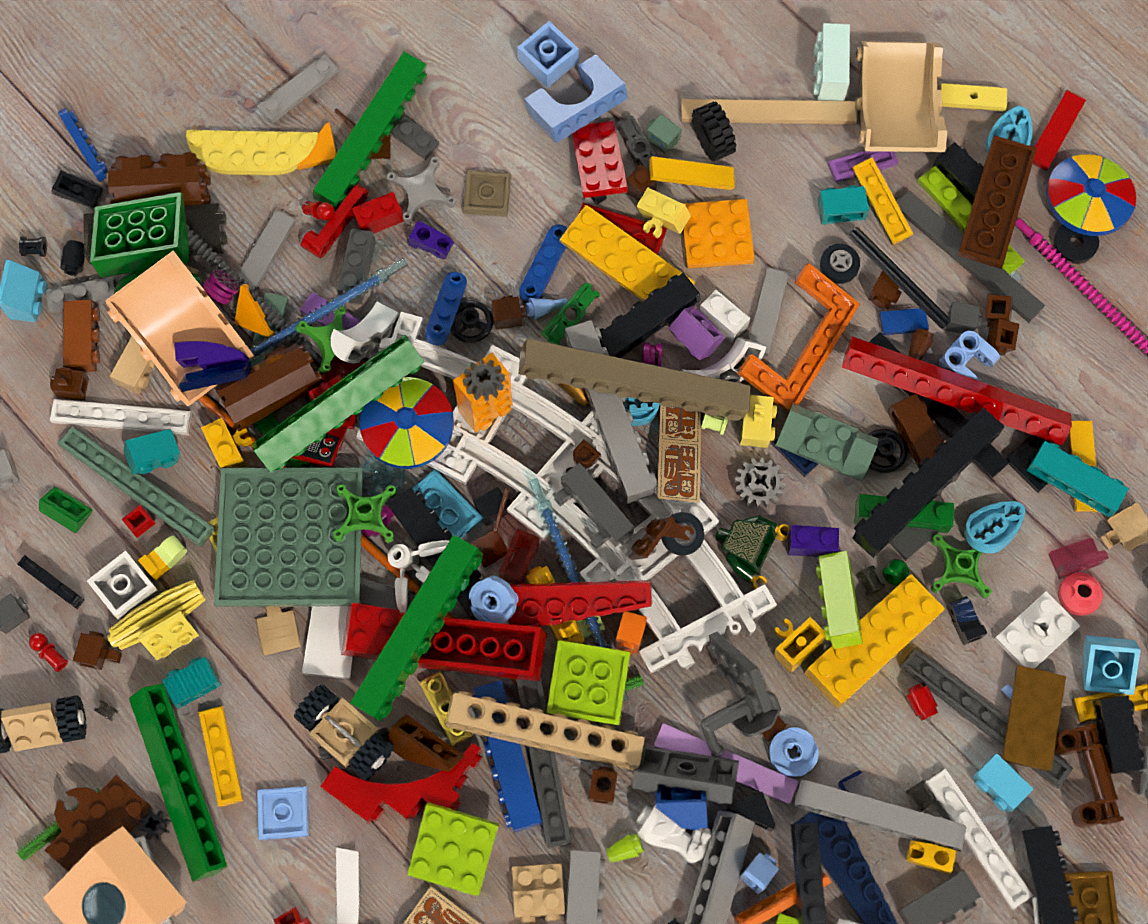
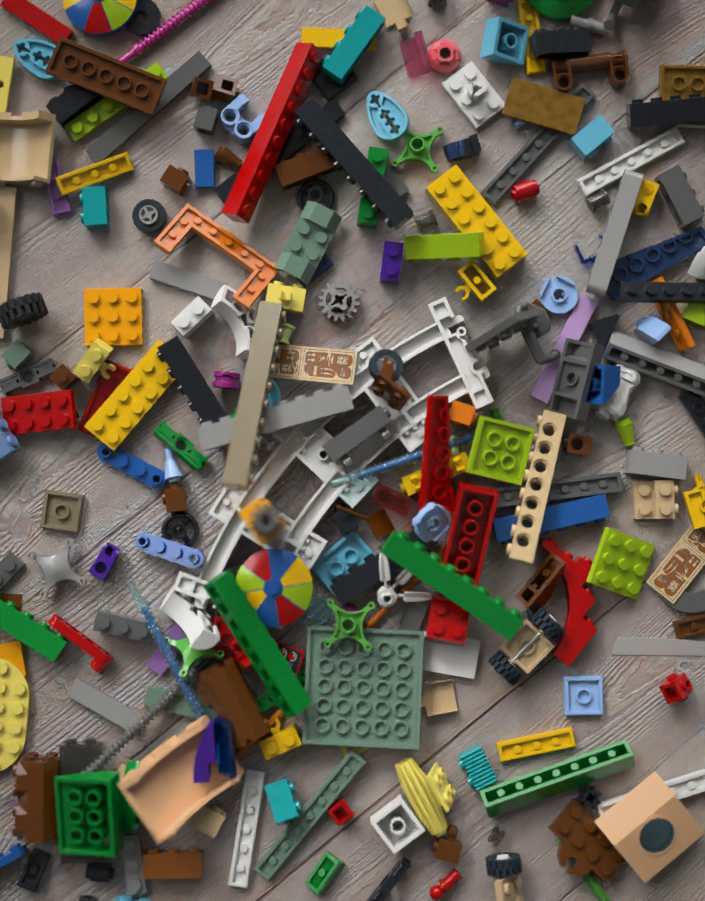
camera: 90 degrees left, 15 degrees up
(69, 384) = (216, 872): reddish brown brick -> none
(163, 557) = (373, 791): leg -> none
(221, 286) = (143, 743): magenta wheel -> none
(249, 313) = (166, 717): light orange tile -> none
(318, 210) = (71, 657): red pin -> none
(378, 213) = (78, 606): red brick -> none
(438, 695) = (497, 570): light yellow tile -> none
(585, 454) = (311, 441): reddish brown tile -> none
(691, 173) = (59, 333): yellow tile -> none
(696, 332) = (206, 341): medium lavender brick -> none
(749, 544) = (391, 314): dark green torso -> none
(895, 572) = (418, 199): green piece -> none
(899, 277) = (171, 166): black axle -> none

